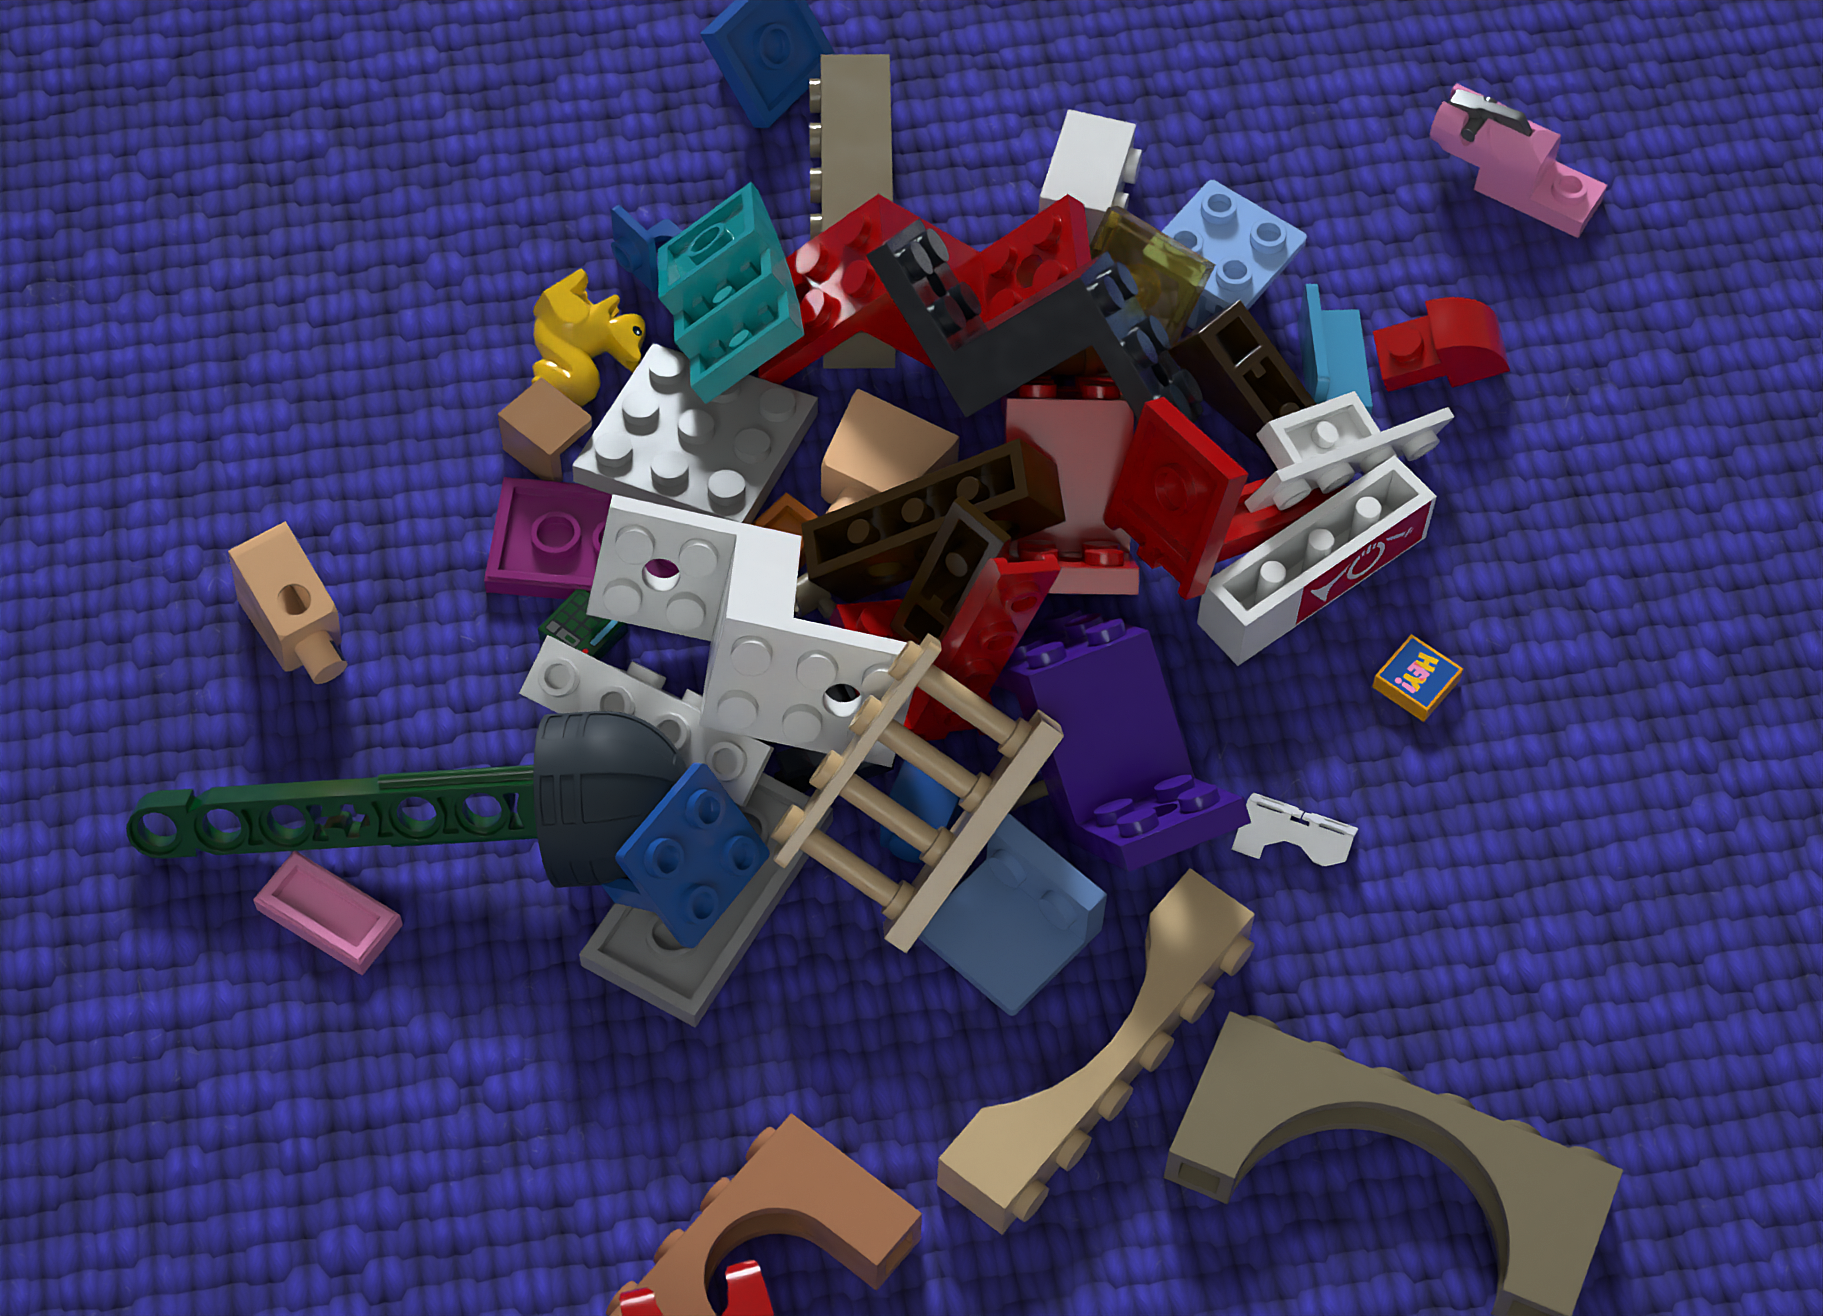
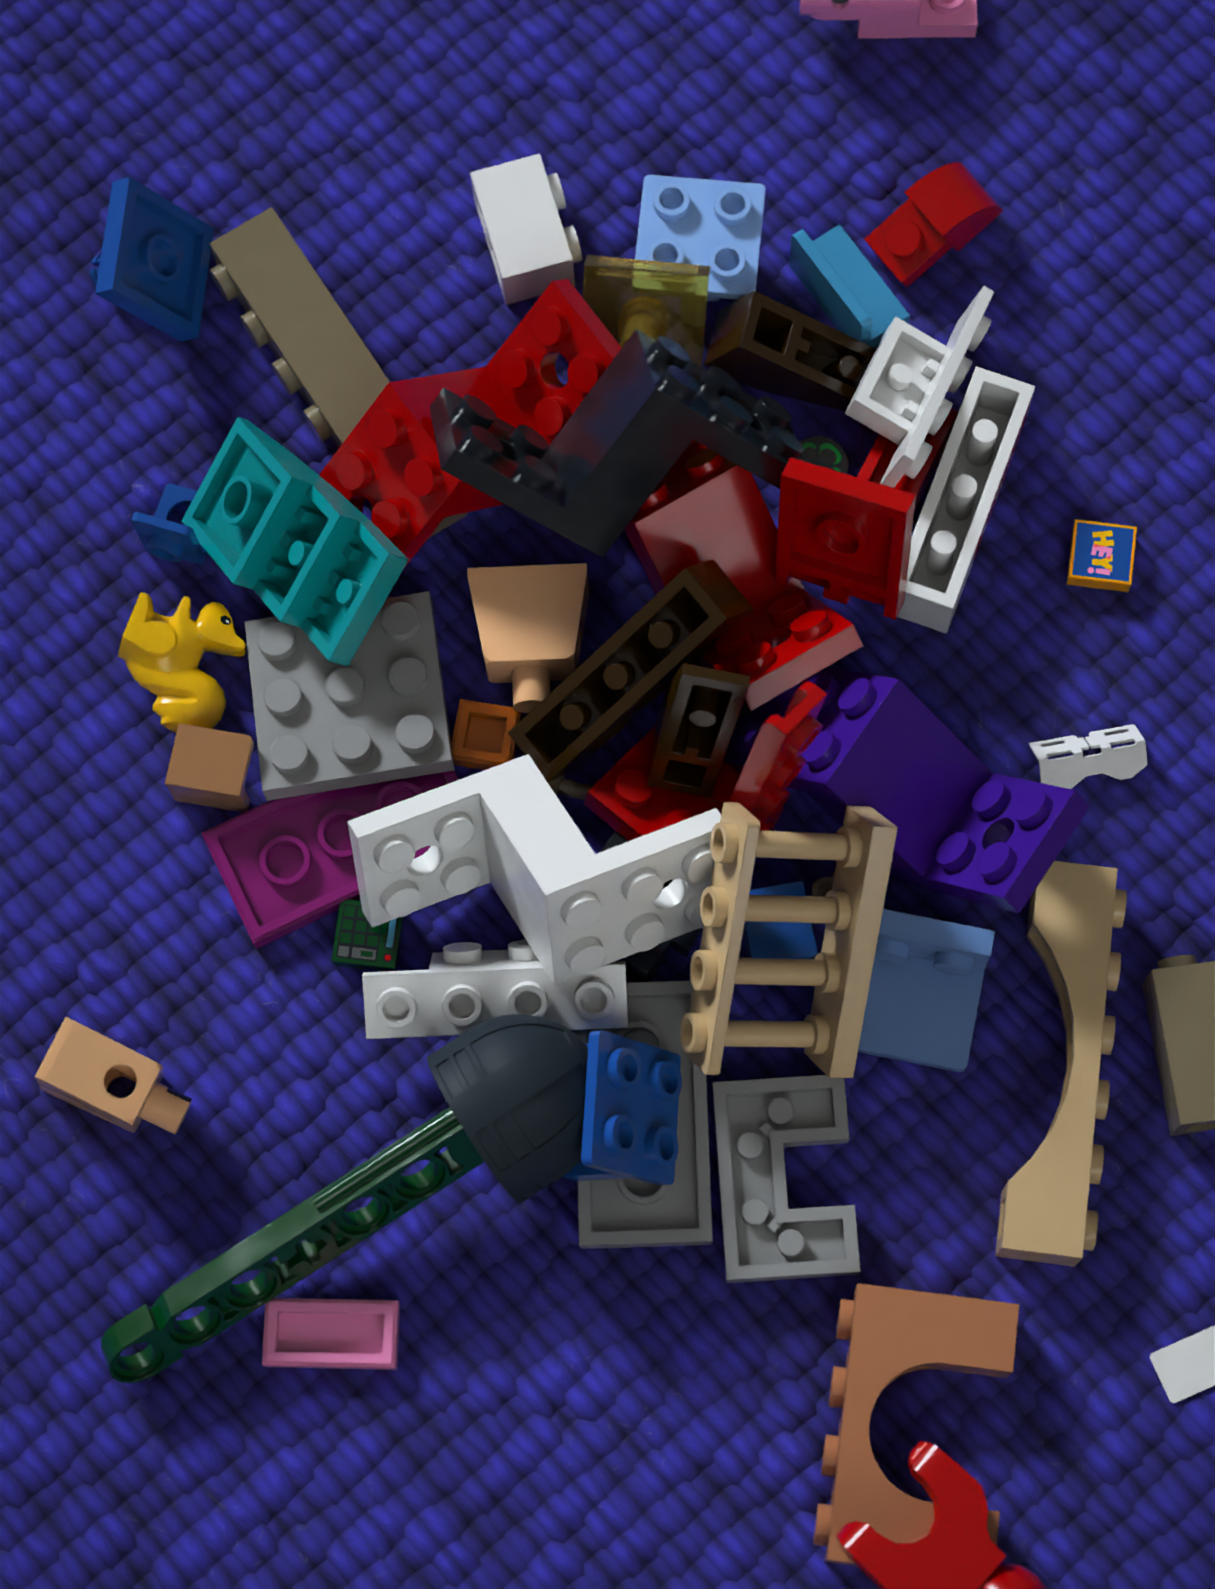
camera: 25 degrees left, 15 degrees up
(744, 1033) = (759, 1231): none -> light grey plate

